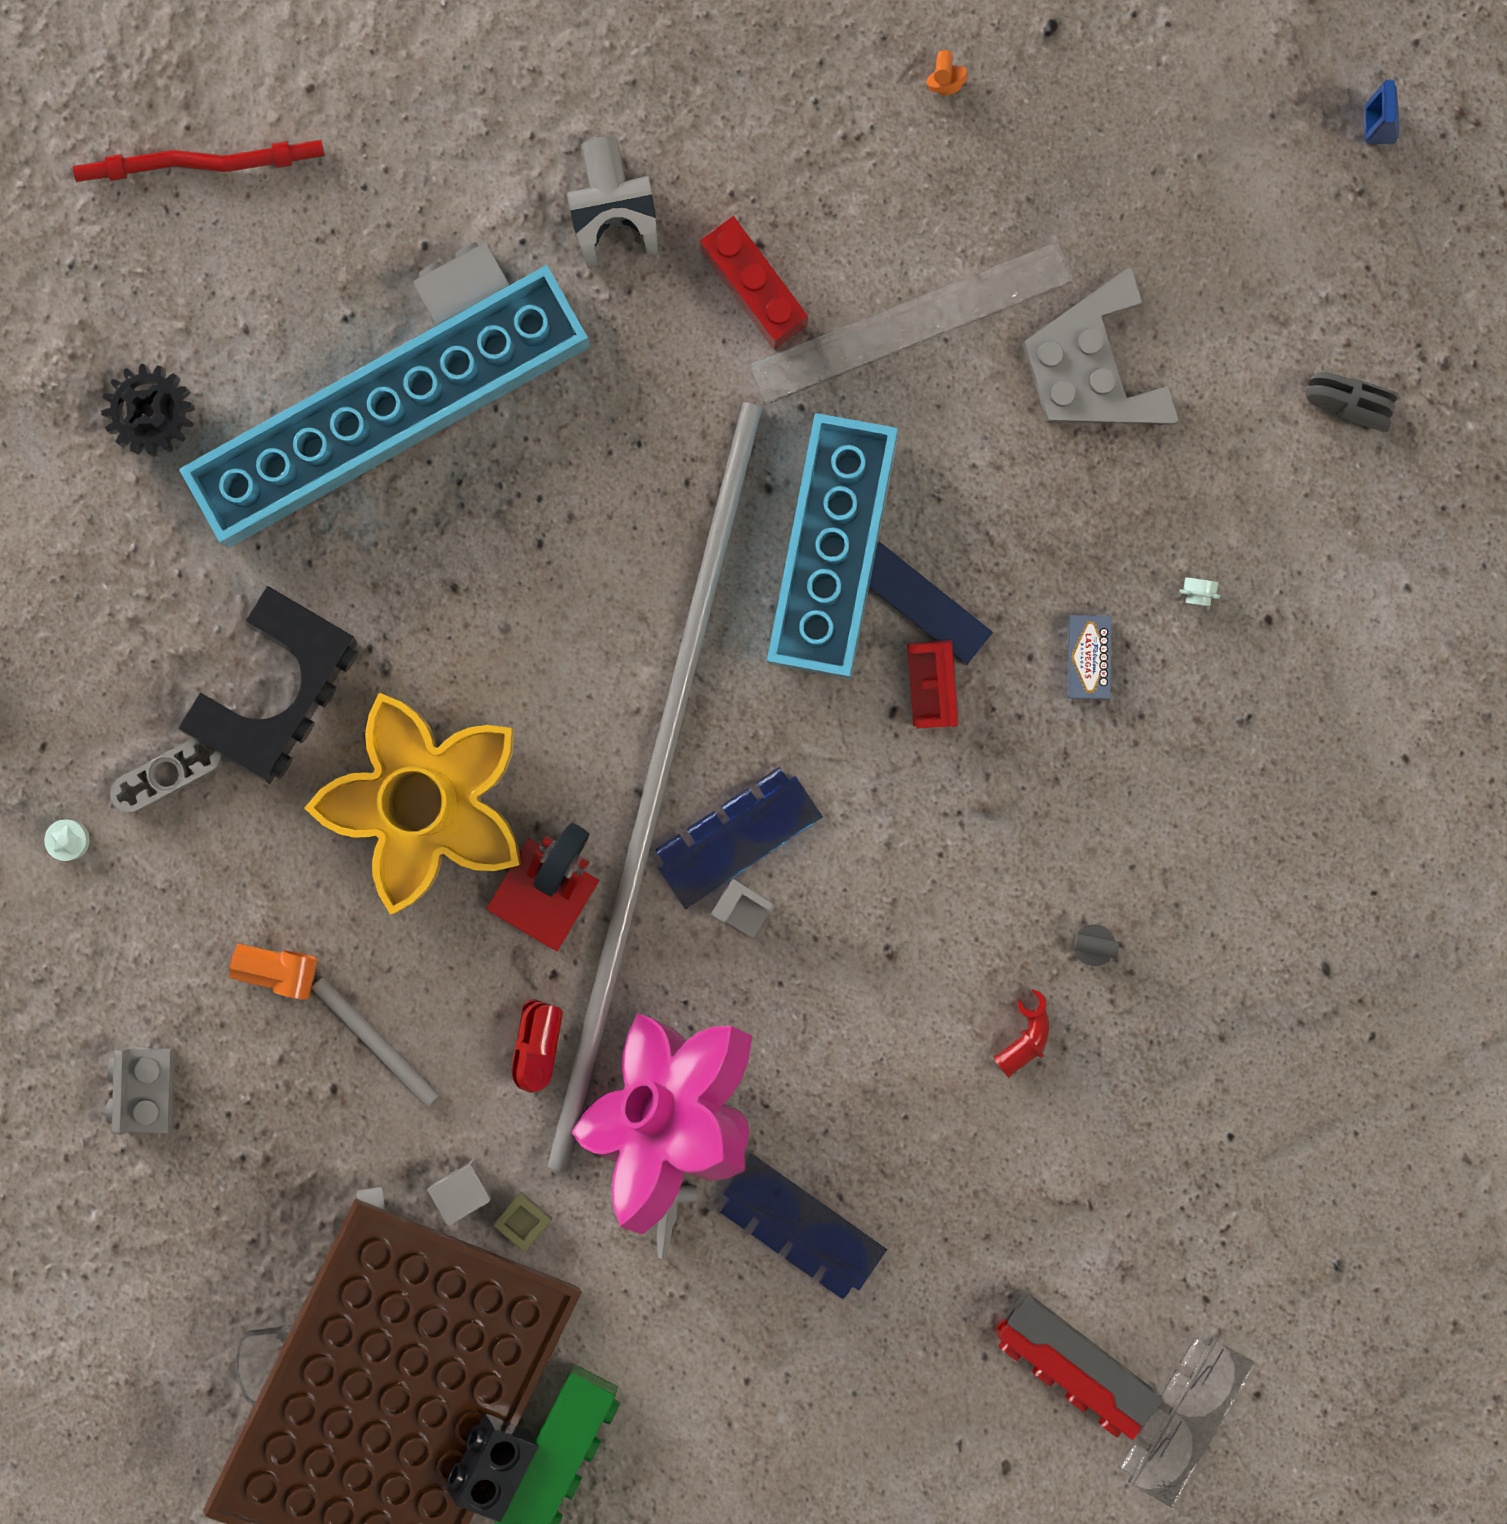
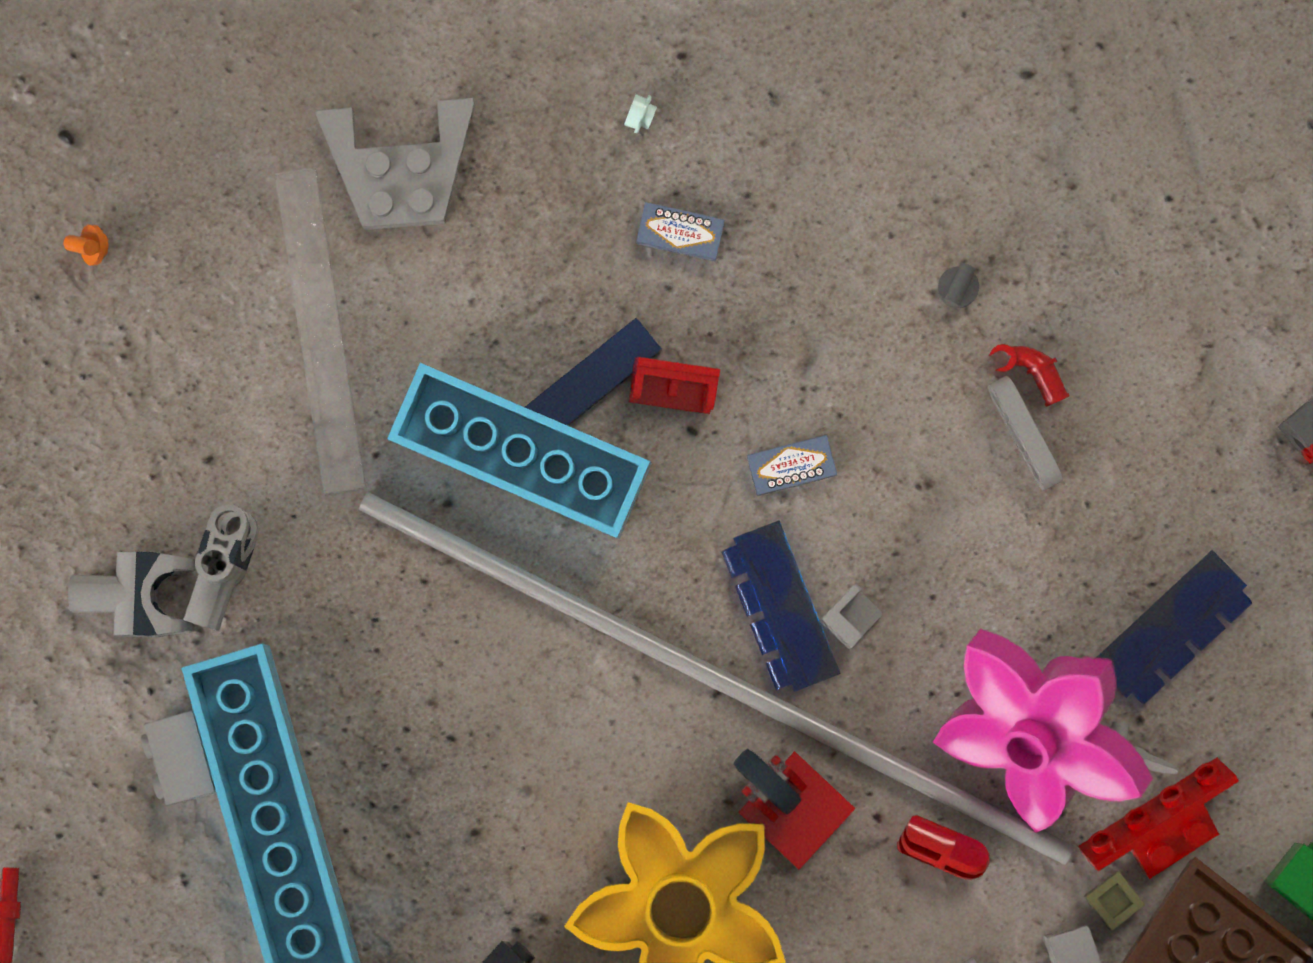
camera: 75 degrees left, 5 degrees down
(606, 1257) = (1165, 825): none -> red bracket
(672, 291) = (212, 585): none -> light grey connector
(753, 282) = (245, 472): red brick -> none
(879, 818) = (791, 465): none -> tile
(962, 1041) = (1025, 433): none -> light grey beam

